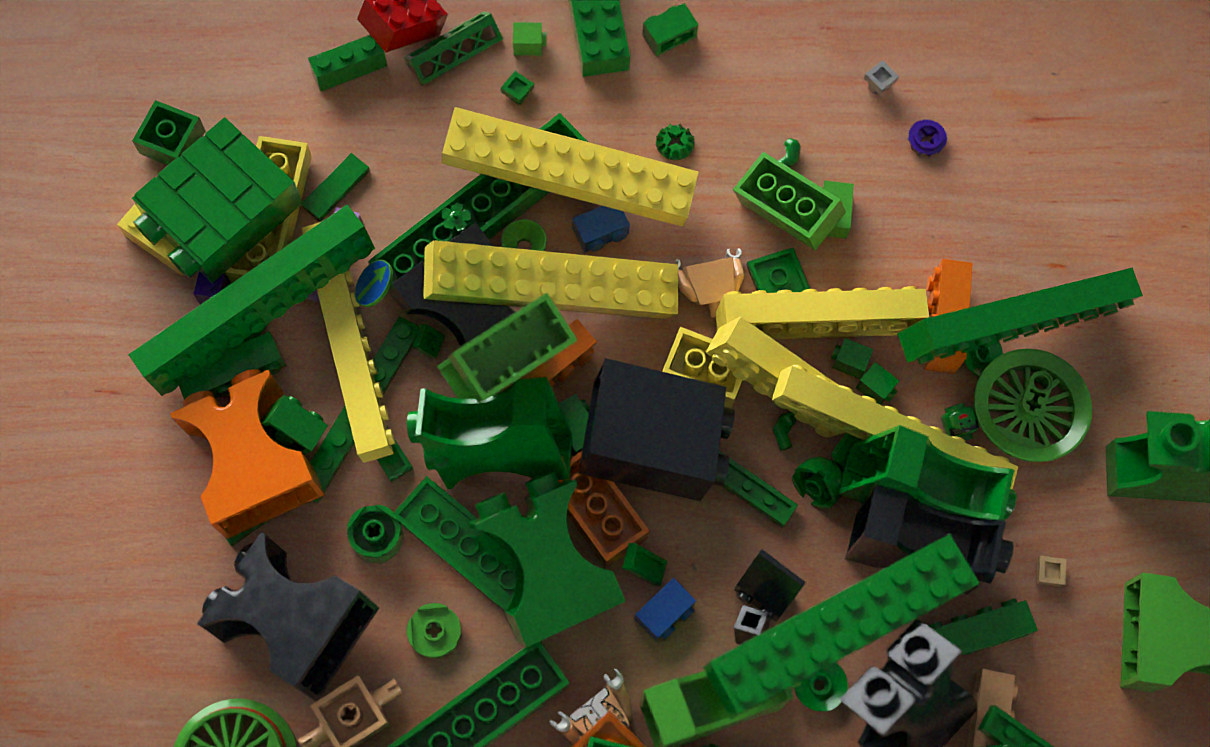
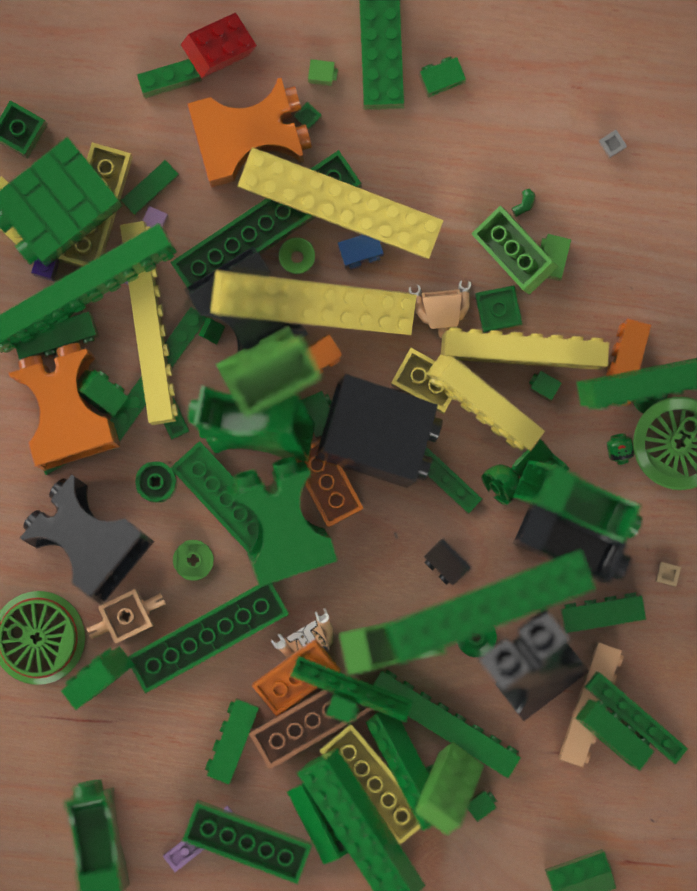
camera: 15 degrees right, 15 degrees up
(373, 283) = (173, 284): blue piece -> none
(422, 106) = (231, 133): none -> orange brick
(449, 39) = (258, 65): green fence -> none
(455, 218) = (243, 234): green plant -> none
(644, 564) = (357, 531): green tile -> none
(665, 610) = (368, 567): blue brick -> none
(675, 151) = (431, 189): green gear -> none
(750, 624) = (430, 589): black brick -> none
(782, 428) = (480, 435): green arm -> none
(866, 418) = (557, 452): light yellow brick -> none
(878, 384) = (562, 410): green brick -> none
(927, 128) = (646, 192): dark purple gear -> none

